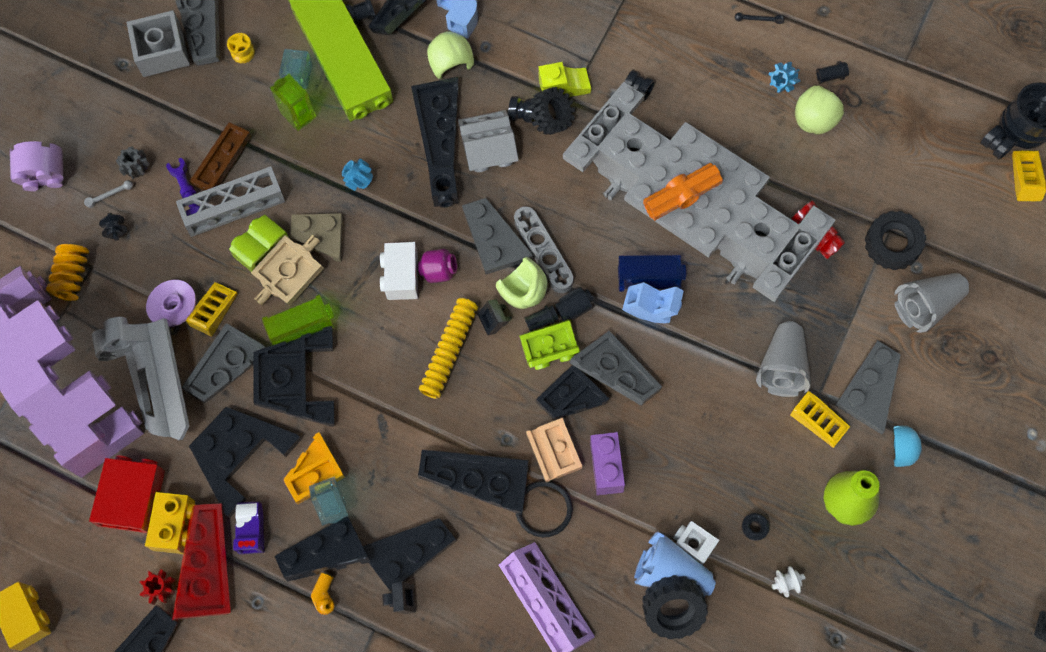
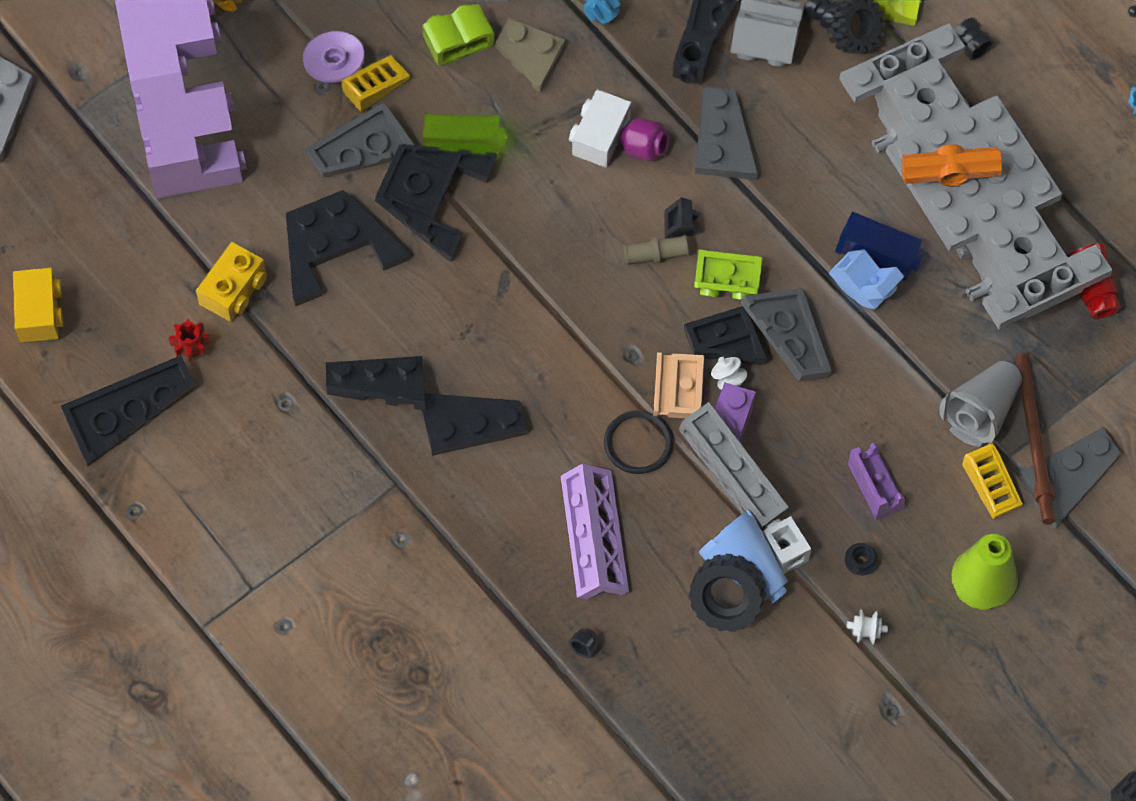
camera: 20 degrees right, 5 degrees down
(126, 494) = (198, 233): red brick -> none
(150, 362) = (283, 107): light grey panel -> none
(203, 572) = (244, 345): red wing -> none
(249, 528) = (311, 324): dark purple leg -> none
(287, 270) = (476, 75): tan plate -> none
(312, 467) = (406, 295): light orange wing -> none
(320, 595) = (355, 423): light orange arm -> none
(328, 501) = (409, 330): clear light blue brick -> none
(401, 598) = (440, 461): black tile -> none
(448, 348) = (614, 231): yellow piece -> none
(481, 477) = (585, 379): black wing -> none
(485, 349) = (655, 250): none -> dark tan pin
(524, 286) = (730, 201): yellowish green piece -> none
(541, 318) = (735, 243): black pin -> none
(543, 249) = (772, 173): light grey beam -> none
(574, 304) = (778, 244): black brick -> none
(587, 423) = (729, 371): none -> white wheel
(630, 501) = (732, 465): none -> light grey fence
(736, 459) = (875, 482): none -> medium lavender hinge
(865, 412) = (1043, 489): none -> copper bar
(906, 446) = (1070, 545): medium azure hair -> none

